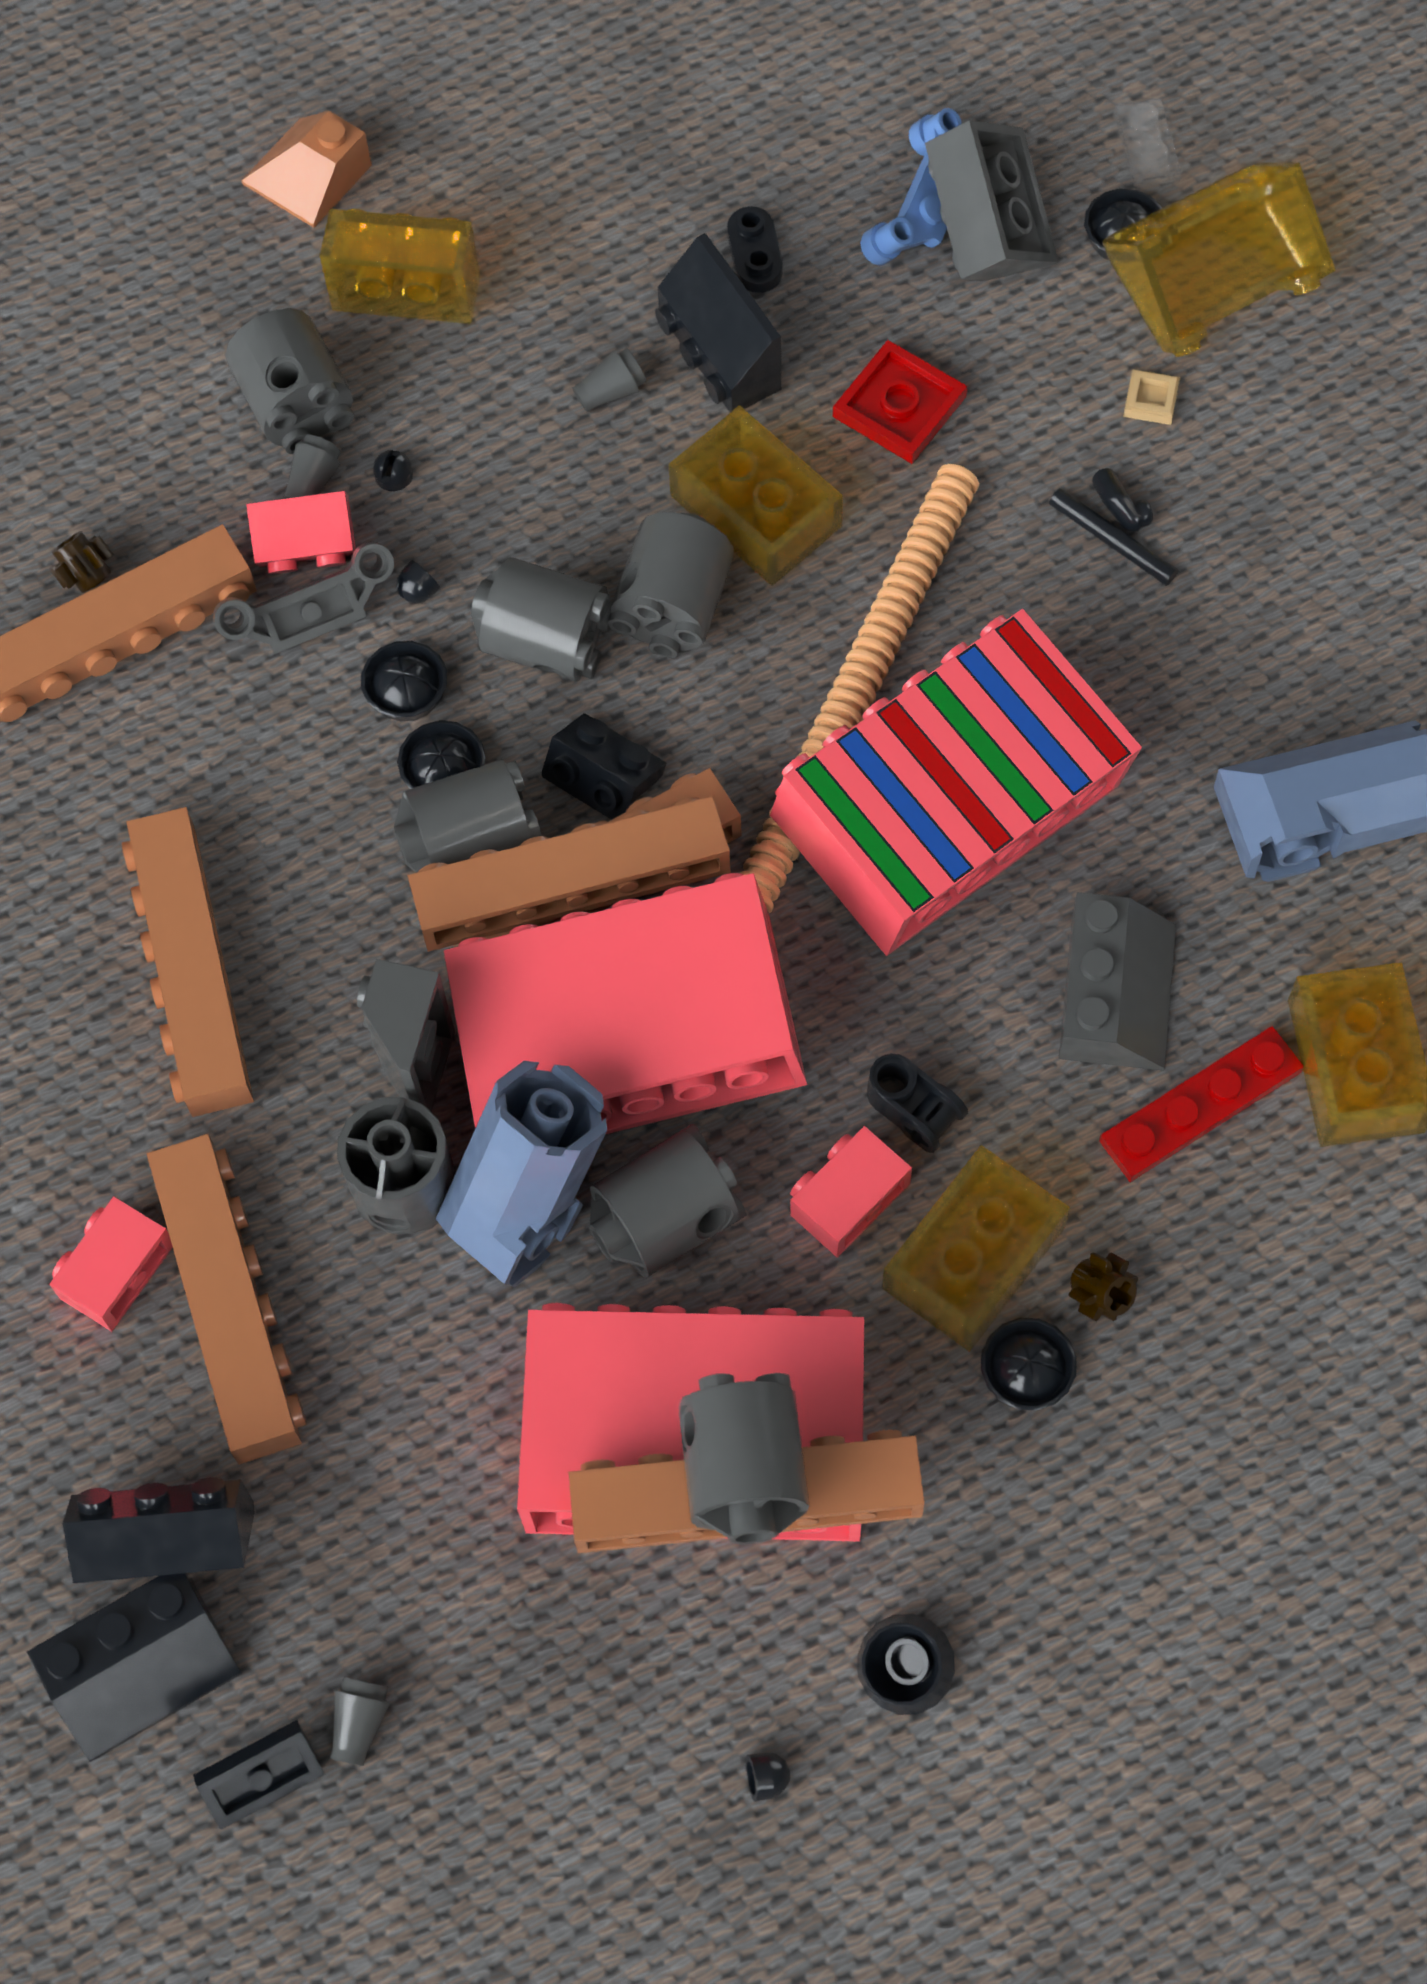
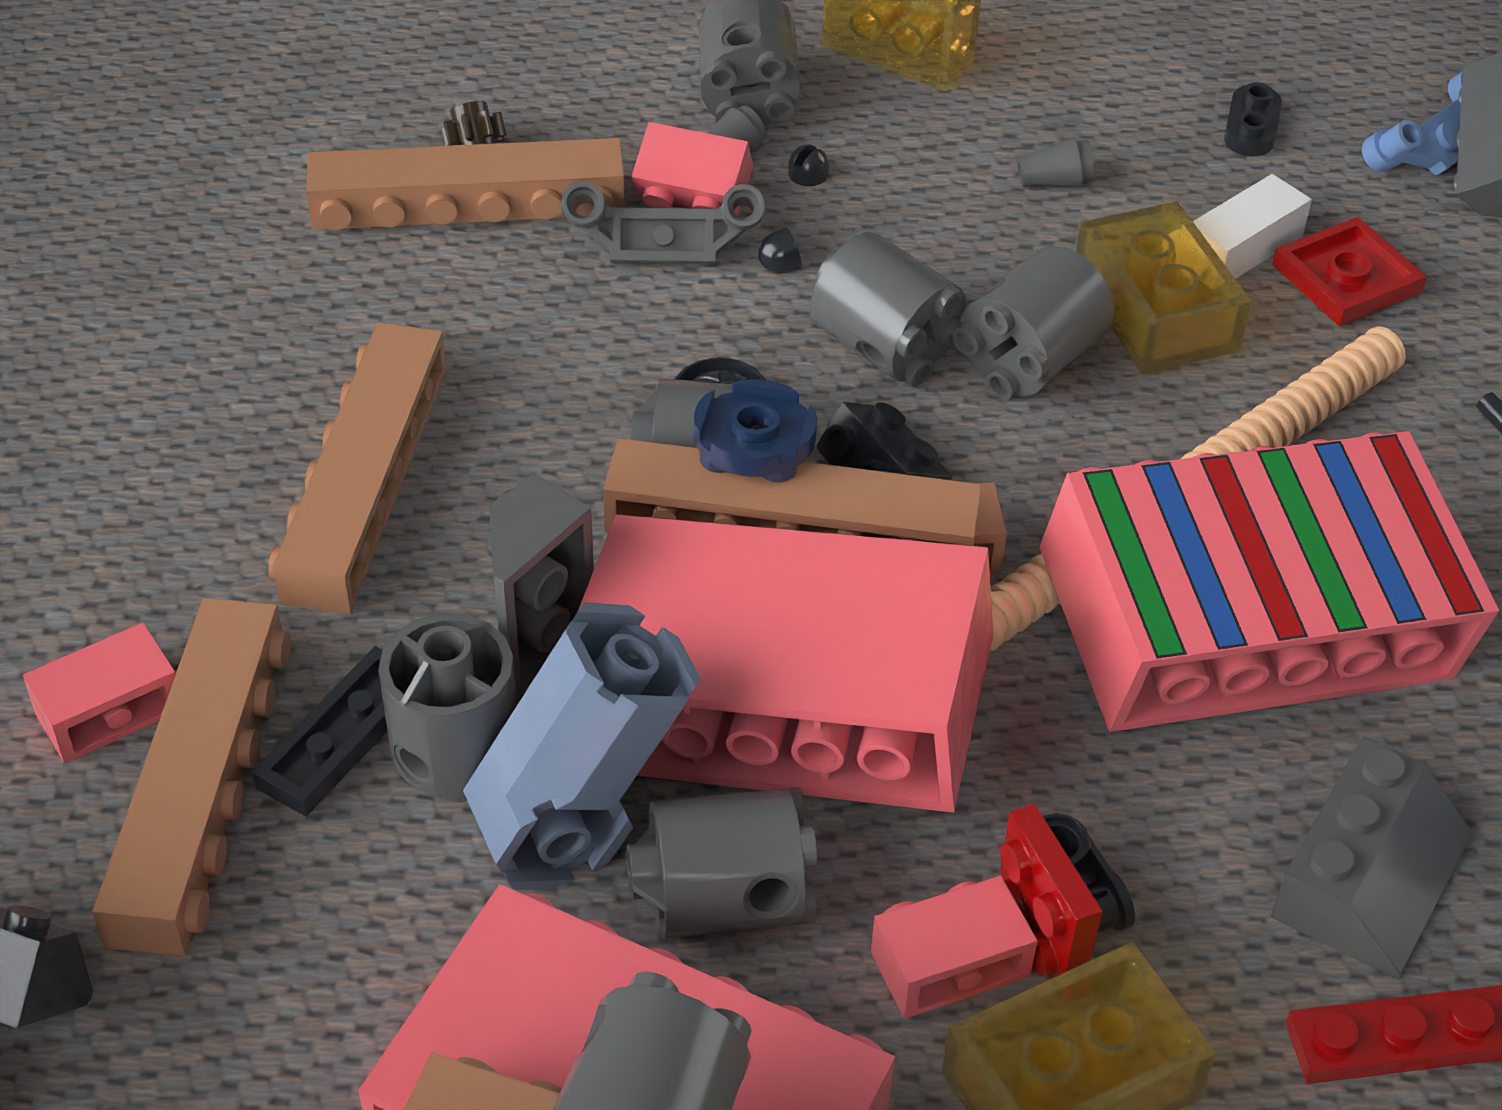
camera: 20 degrees right, 20 degrees down
(310, 1215) = (327, 740): none -> black plate
(404, 680) = (721, 321): black hat -> none
(522, 852) = (730, 444): none -> dark blue plate
(720, 327) = (1188, 142): black slope -> none
(802, 388) = (1255, 223): none -> white brick
(906, 1131) = (1048, 893): none -> red plate

